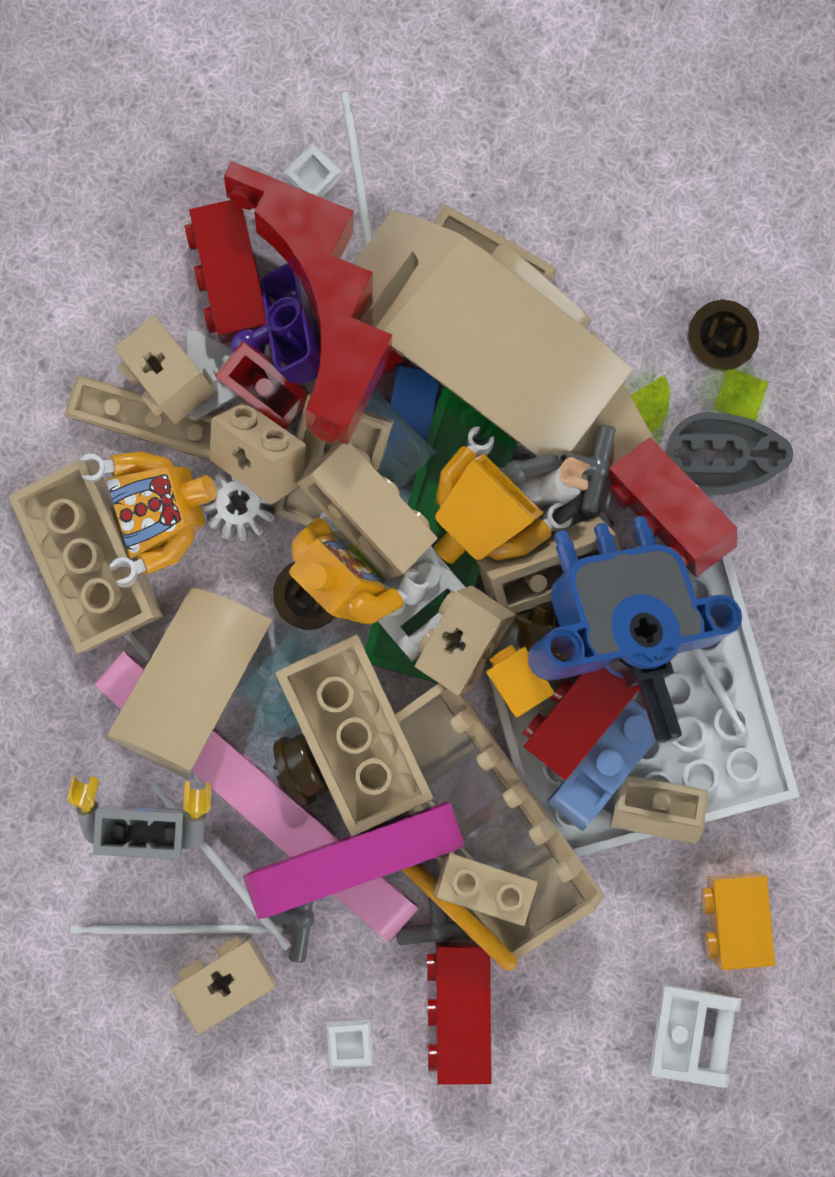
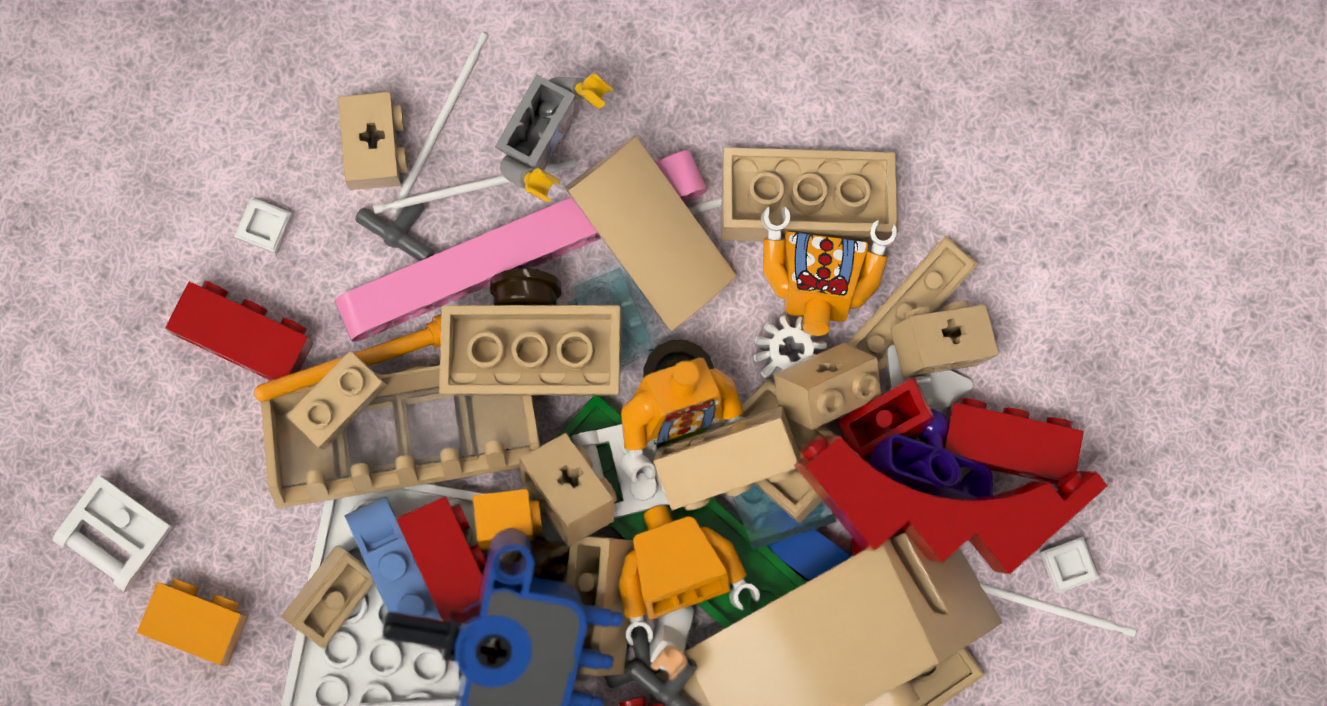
camera: 110 degrees right, 5 degrees down
(354, 860) = (420, 299): dark pink beam -> none
(438, 931) = (322, 349): dark grey piece -> none
(525, 467) = (699, 627): dark grey piece -> none

